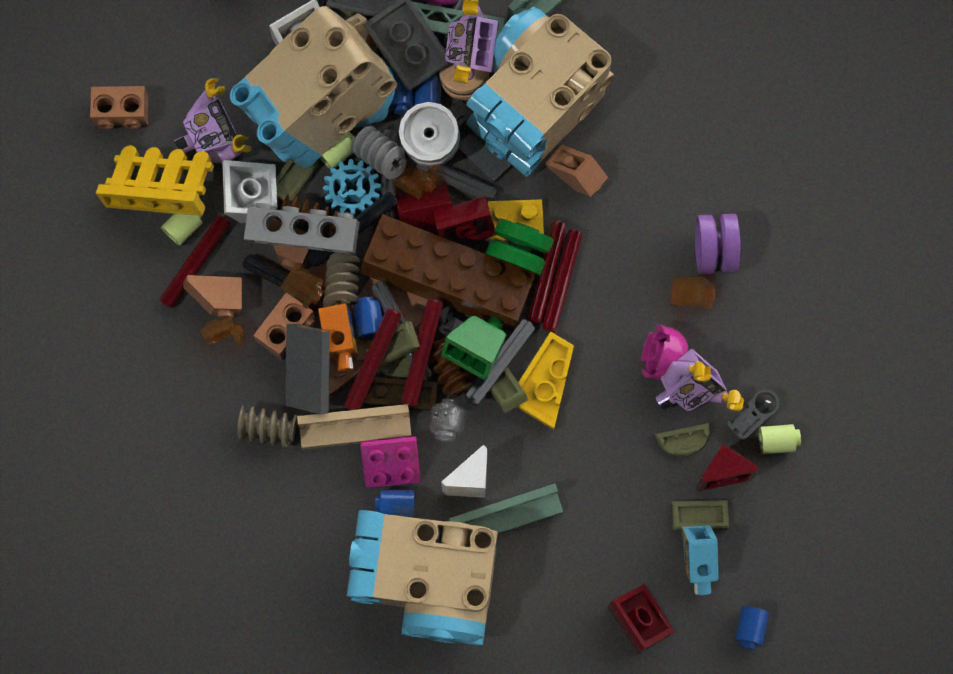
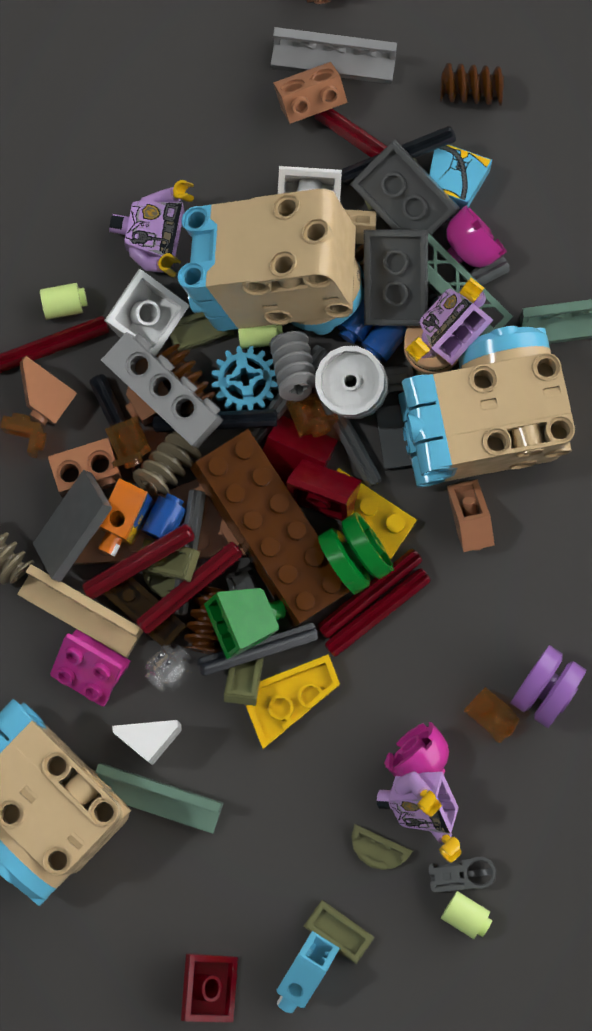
camera: 40 degrees right, 5 degrees up
(120, 99) = (91, 139): nougat brick -> none
(161, 196) = (61, 265): yellow fence -> none
(396, 502) = (63, 711): blue brick -> none
(727, 469) = (390, 907): dark red slope -> none

